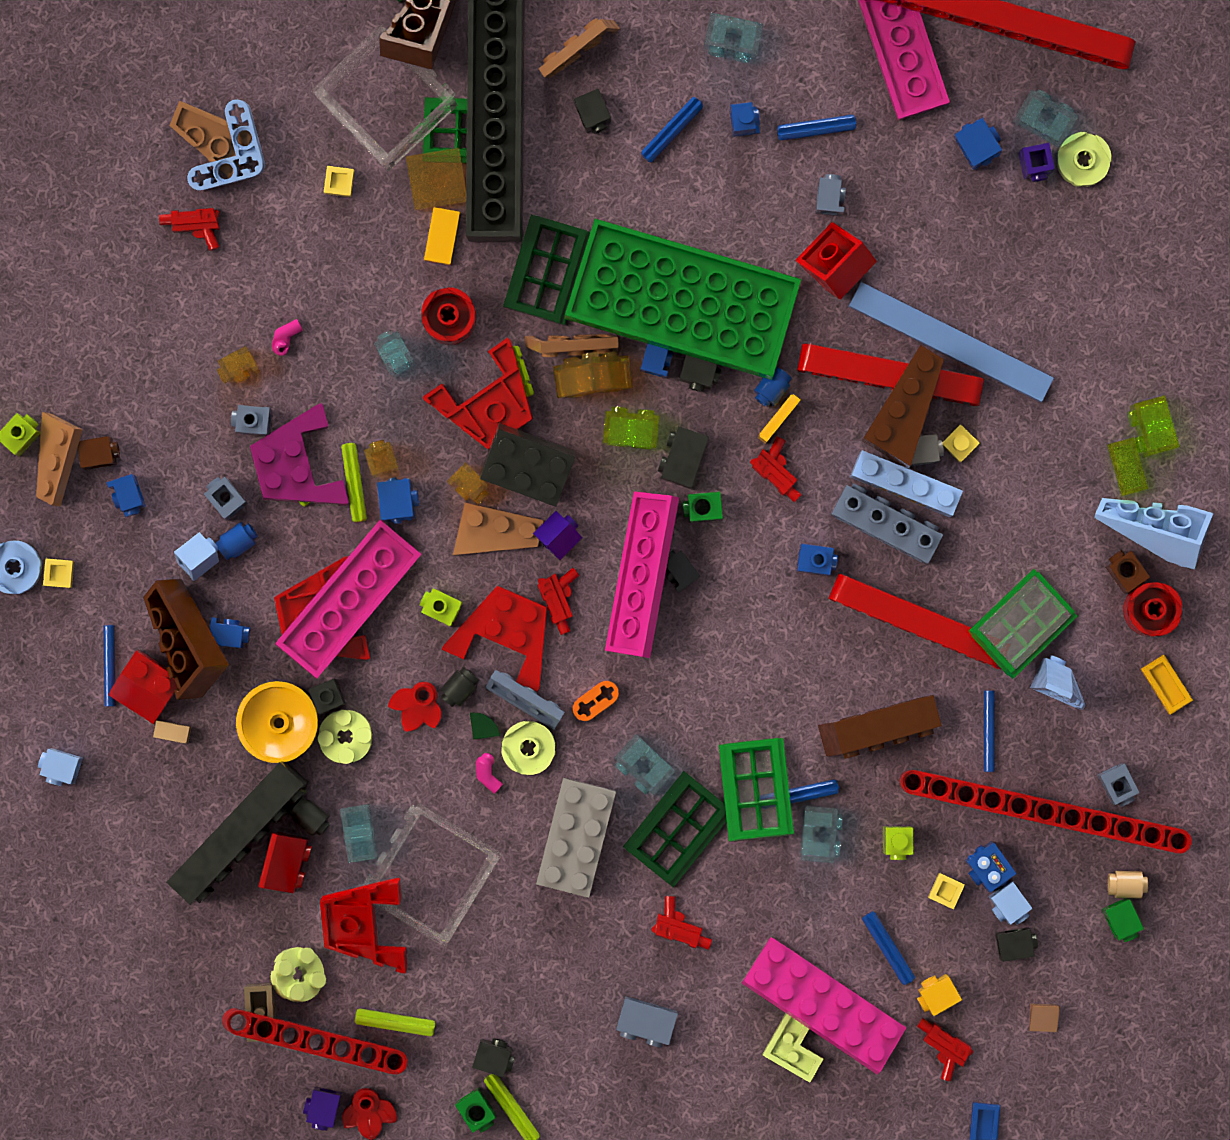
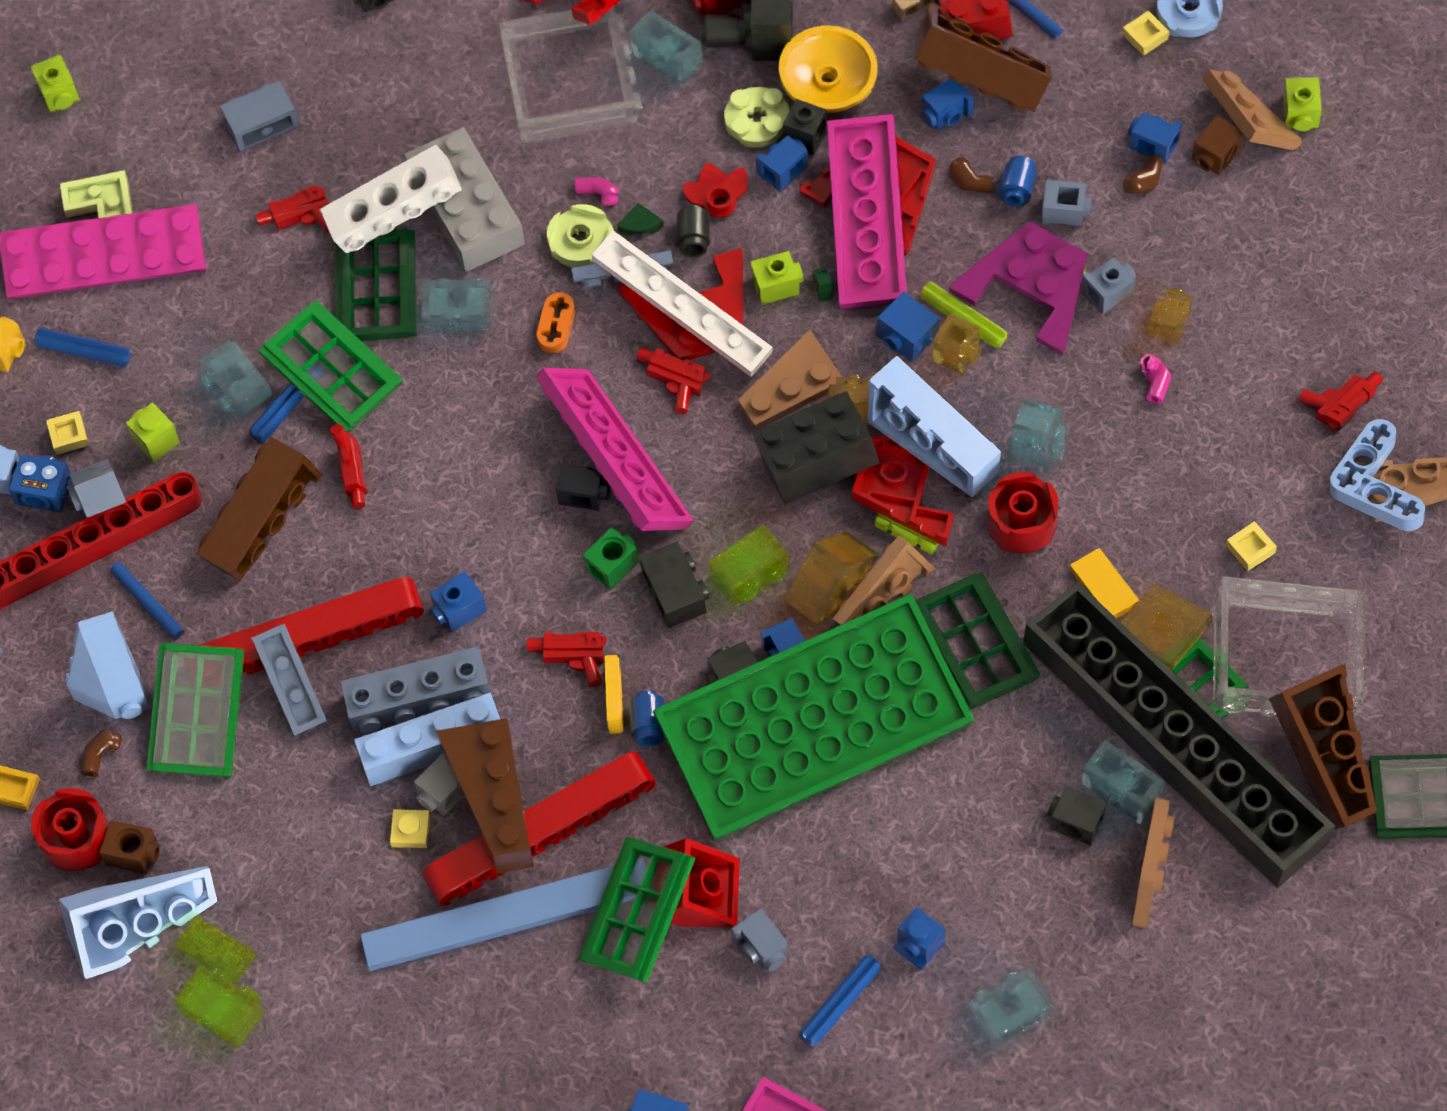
camera: 145 degrees right, 25 degrees down
(158, 472) = (1145, 179): none -> reddish brown arm
(197, 556) = (1039, 135): light blue brick -> none
(263, 573) = (967, 179): none -> reddish brown arm
(361, 685) = (782, 162): none -> blue brick
(416, 579) = (823, 284): none -> dark green tile
(453, 408) = (930, 428): none -> light blue wedge
(518, 633) = (682, 303): none -> white plate
(552, 104) = (1122, 781): none -> clear light blue brick
(558, 534) = (727, 418): dark purple brick -> none
(587, 856) = (374, 198): none -> white brick
(672, 129) = (983, 872): blue axle -> none
(801, 708) = (351, 465): none -> red piece
(884, 270) = (636, 909): none -> green piece
(955, 592) = (289, 679): none -> sand blue plate
(965, 825) = (95, 489): none -> sand blue brick
(1094, 656) = (95, 748): none -> reddish brown arm

